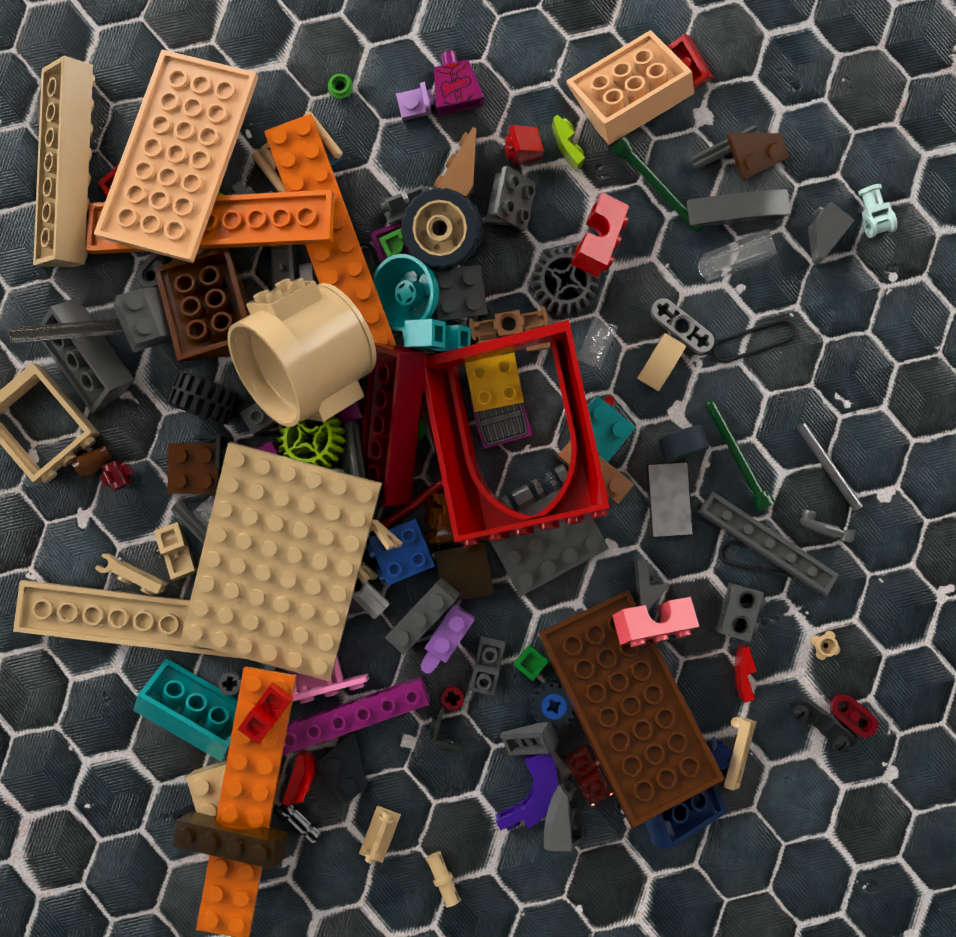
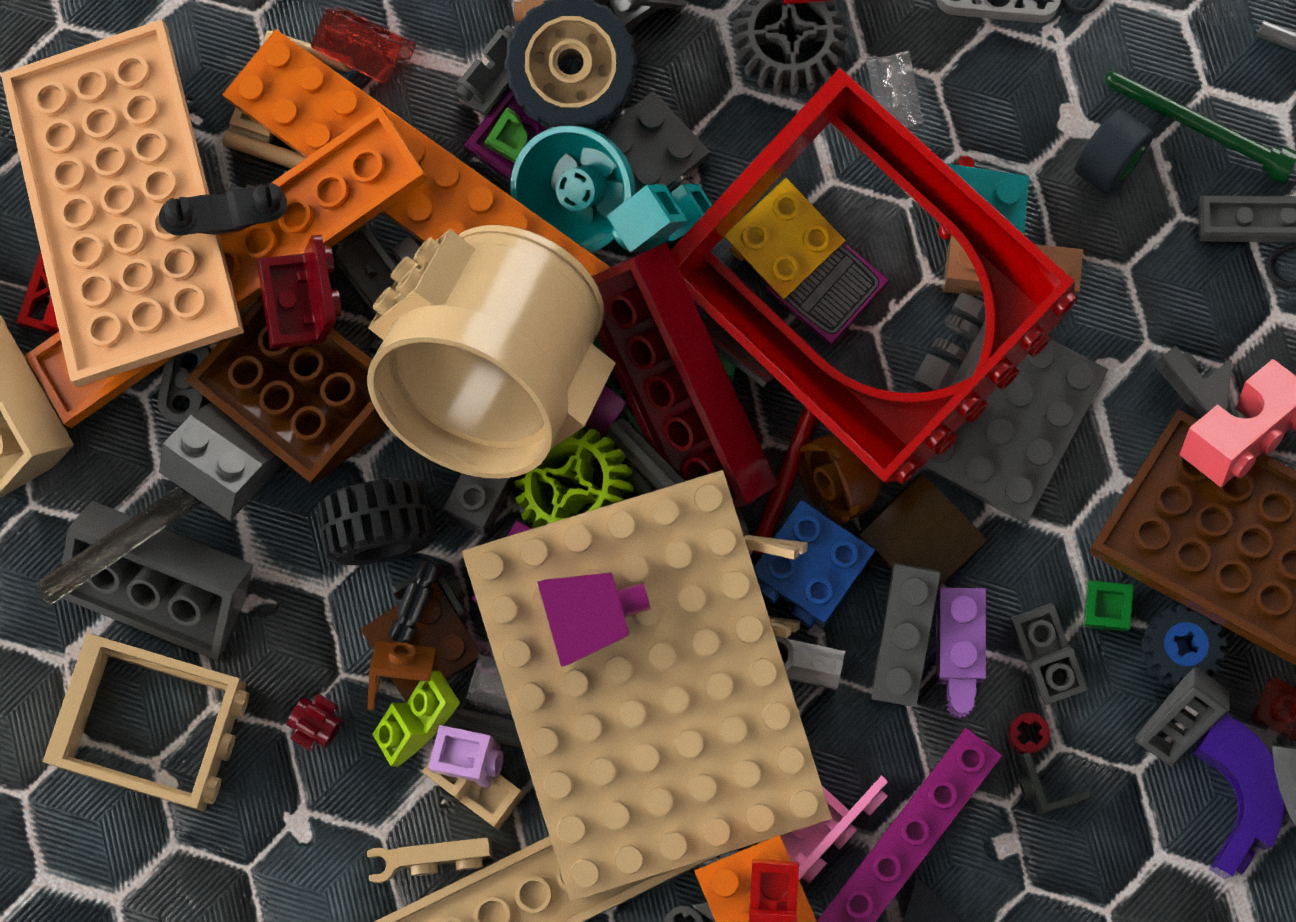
camera: 25 degrees left, 10 degrees down
(91, 462) = (262, 729): reddish brown cone -> none
(165, 505) = (412, 724): none -> lime slope
(172, 474) = (398, 661): none -> dark orange bracket
(176, 539) = (466, 755): none -> lavender bracket
(198, 448) = (415, 600): none -> black axle
(218, 195) = (224, 211): none -> black piece
(226, 261) = (299, 295): none -> dark red bracket
(267, 514) = (588, 612): none -> magenta torso
(351, 147) = (361, 43): none -> clear red bracket
(484, 329) = (719, 176): medium nougat piece -> none
(661, 361) = (1003, 63): tan slope -> none
(669, 499) = (1147, 248): flat silver piece -> none

